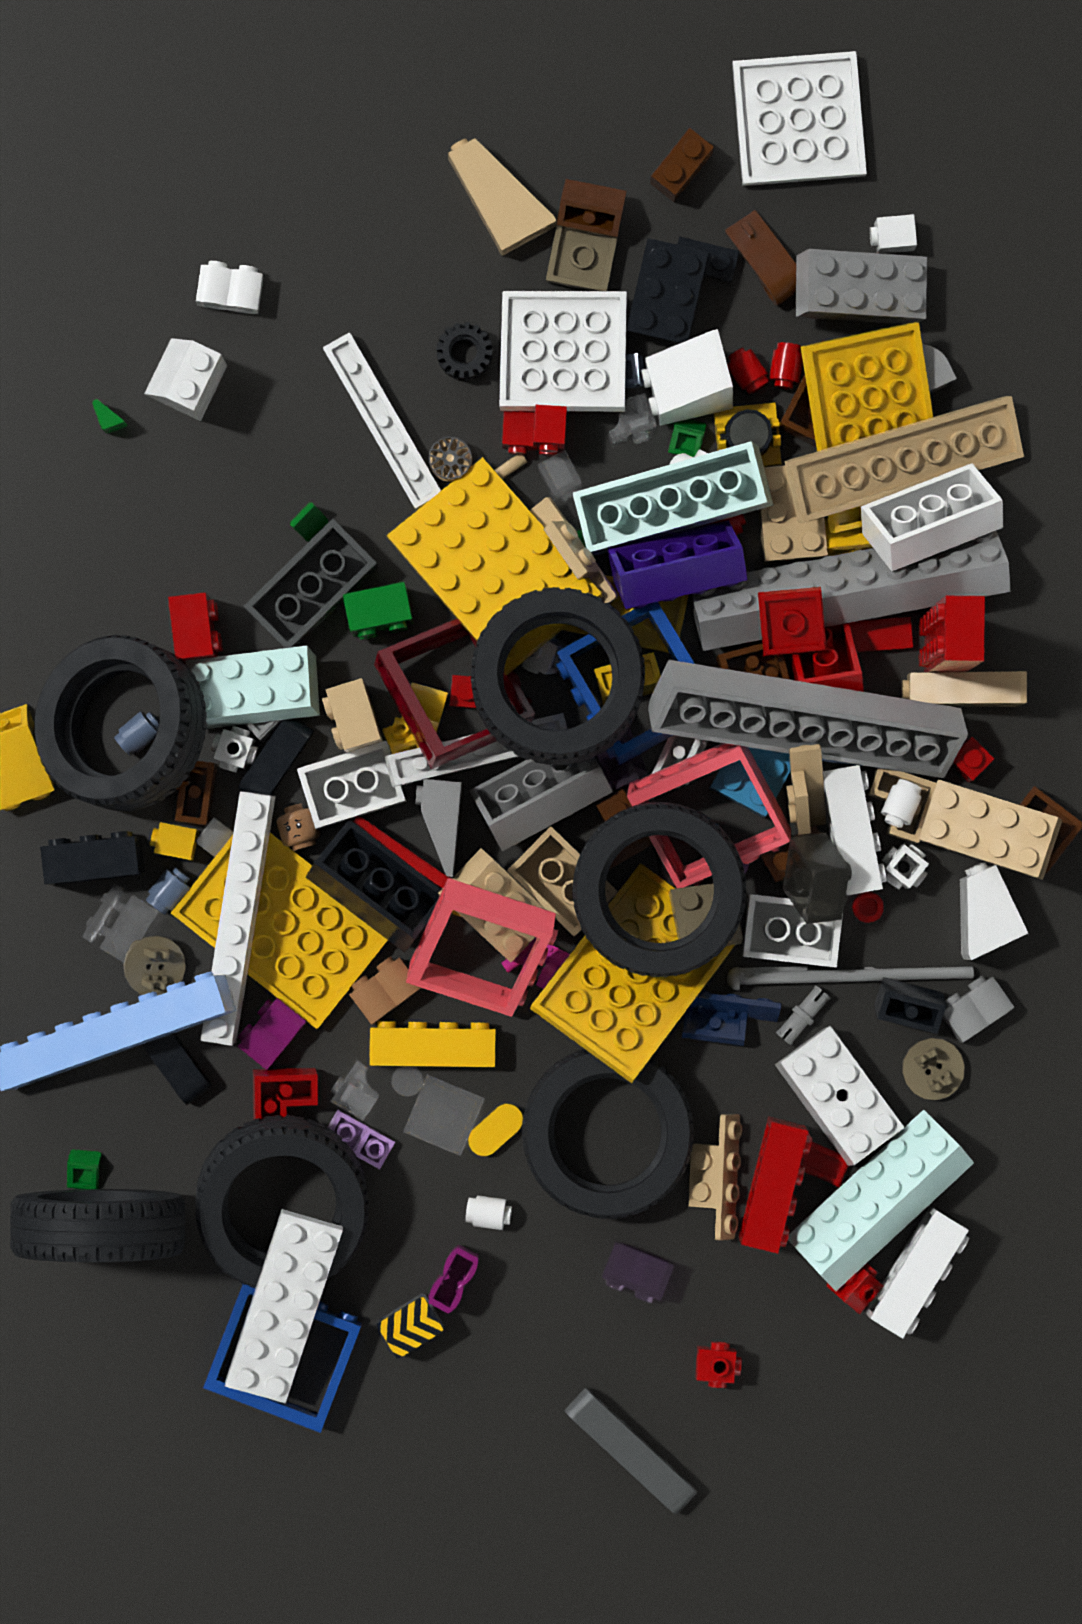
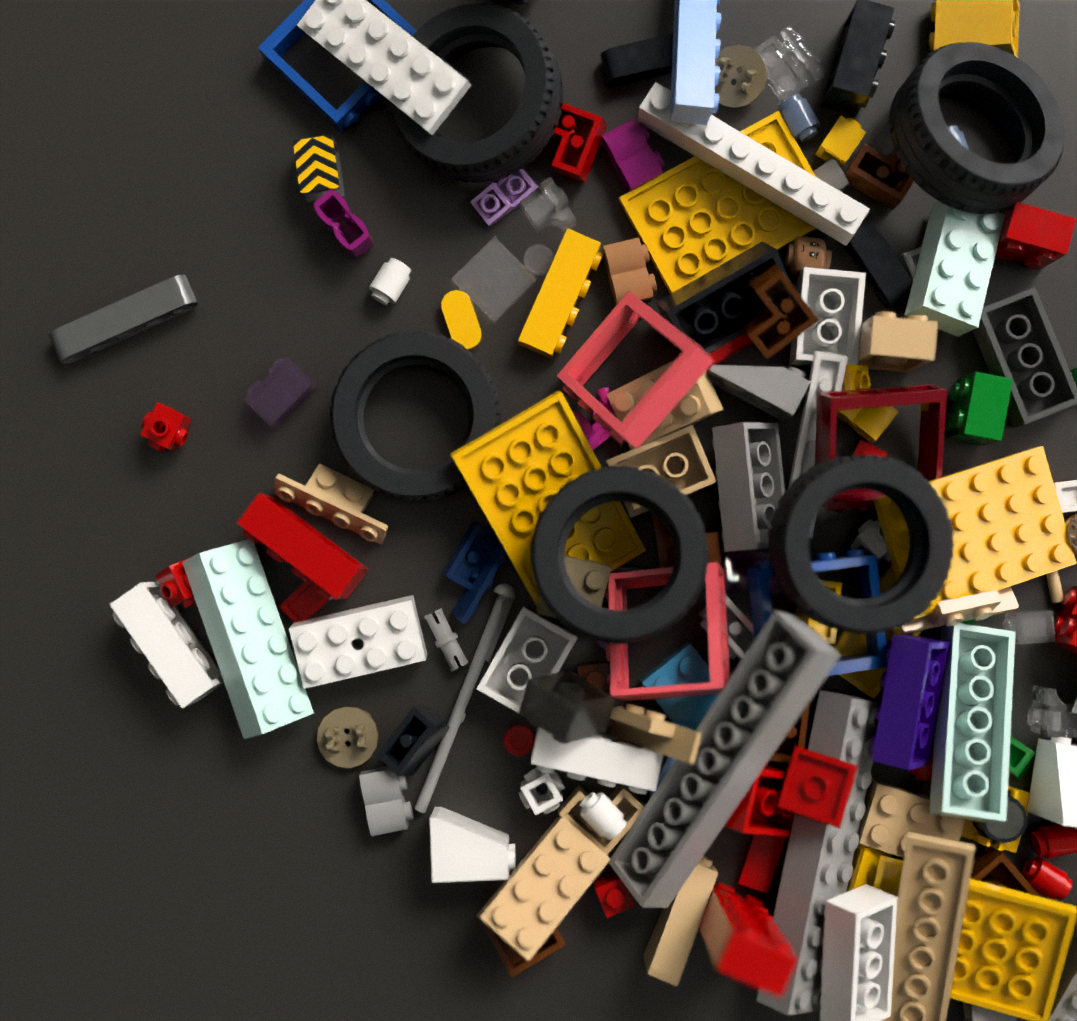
camera: 120 degrees right, 0 degrees up
(245, 755) = (903, 227): white brick -> none
(372, 829) = (785, 316): none -> reddish brown brick

